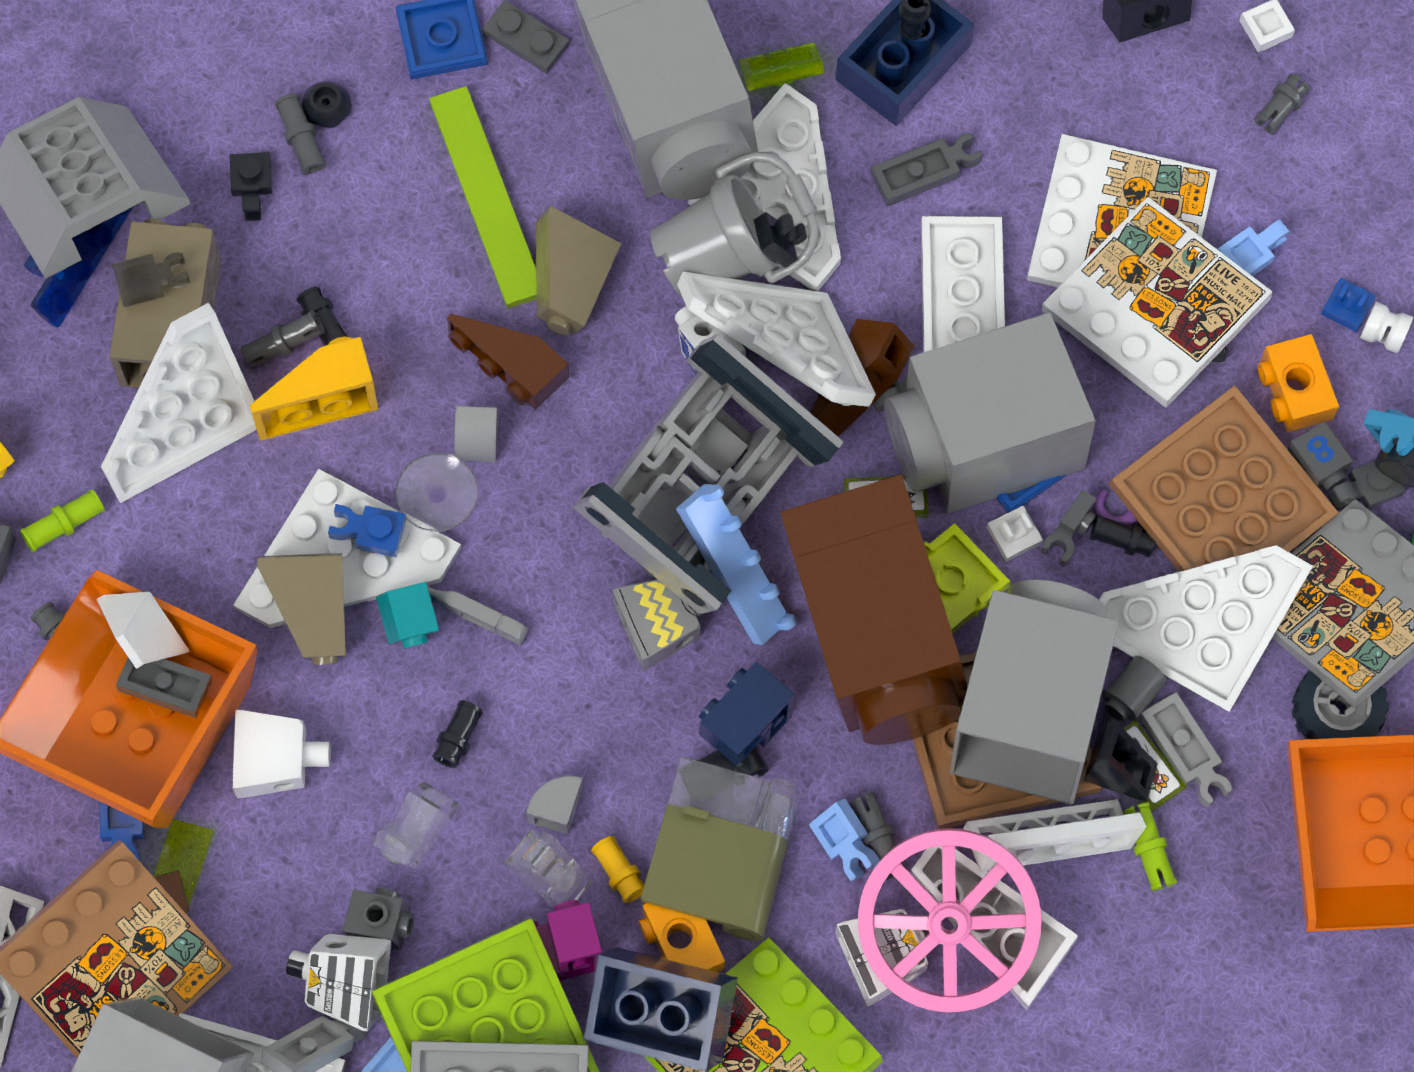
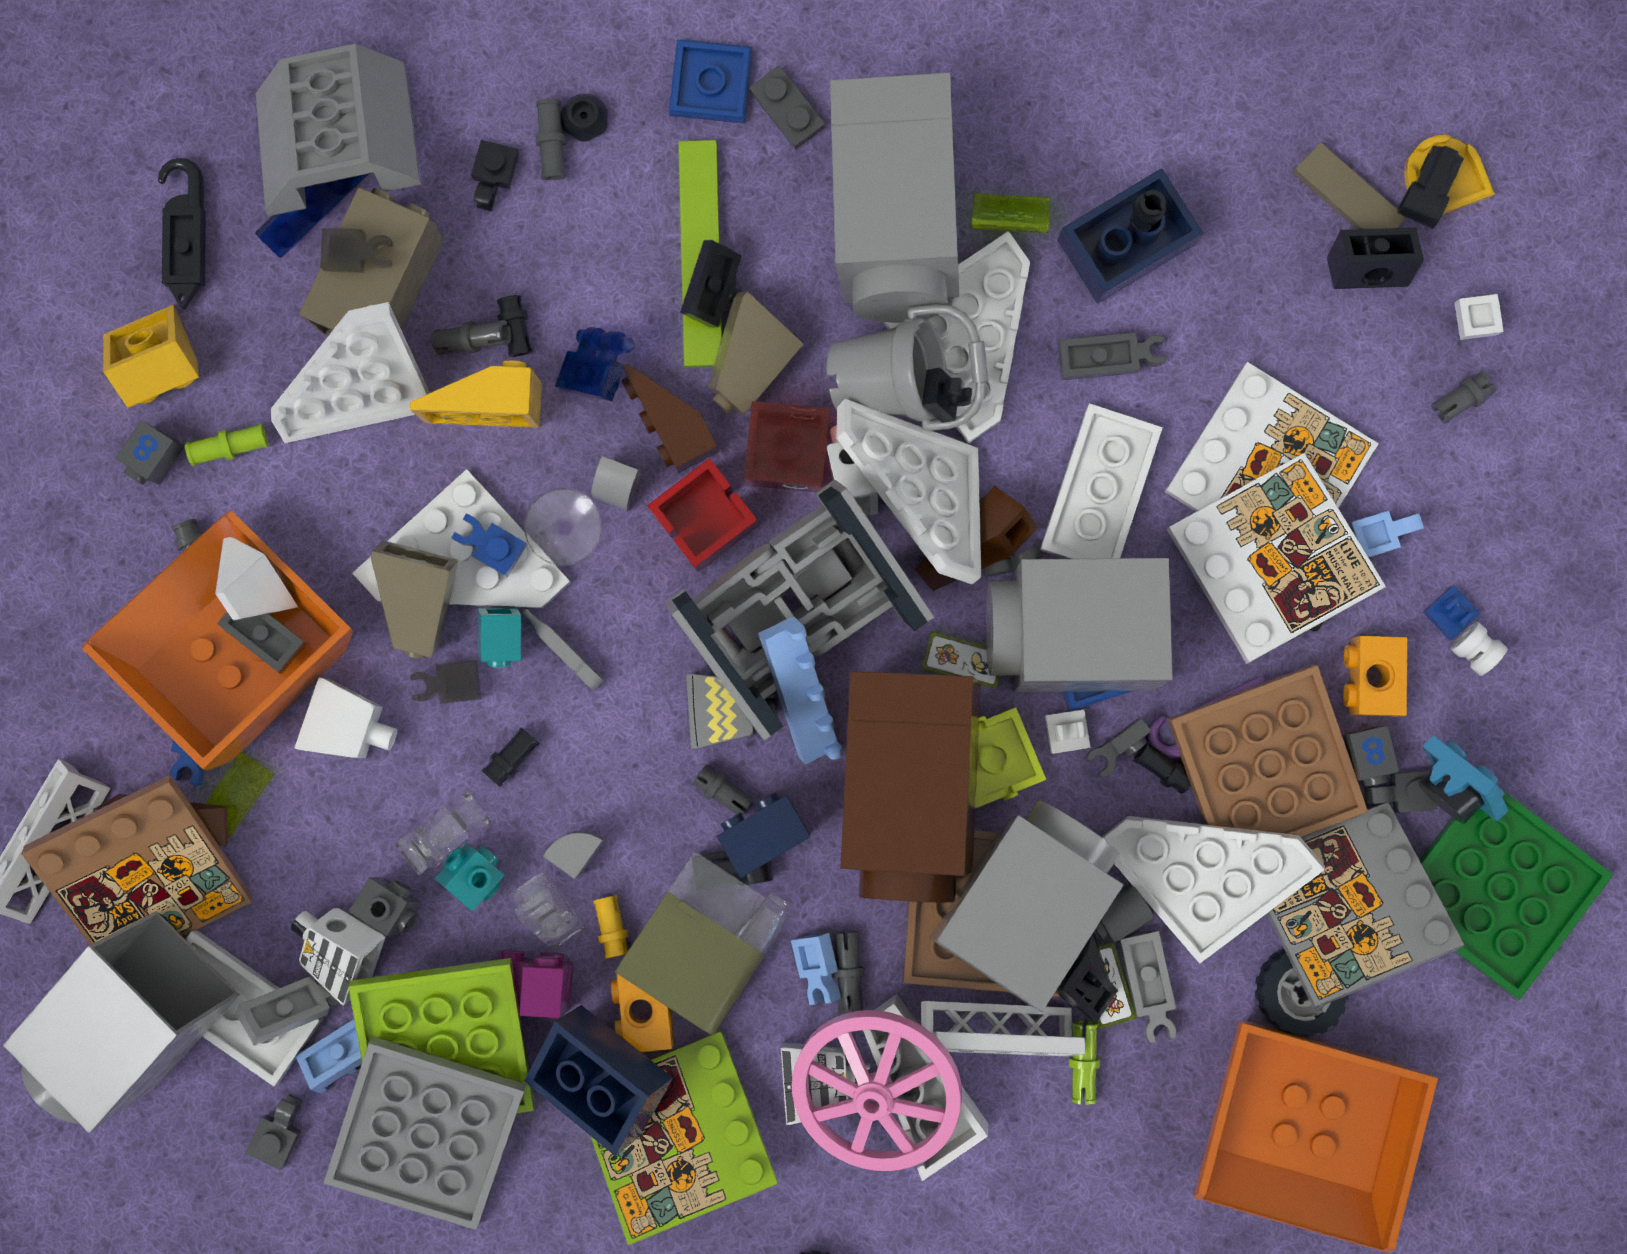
camera: 25 degrees right, 15 degrees up
(374, 679) = (453, 683): none -> clear smoke plate
(420, 335) = (592, 374): none -> clear blue plate
(456, 860) = (470, 875): none -> teal brick
(510, 216) = (711, 284): none -> black plate
(573, 438) = (703, 515): none -> red piece
(638, 345) = (786, 447): none -> clear red brick
(683, 696) = (722, 790): none -> dark grey pin

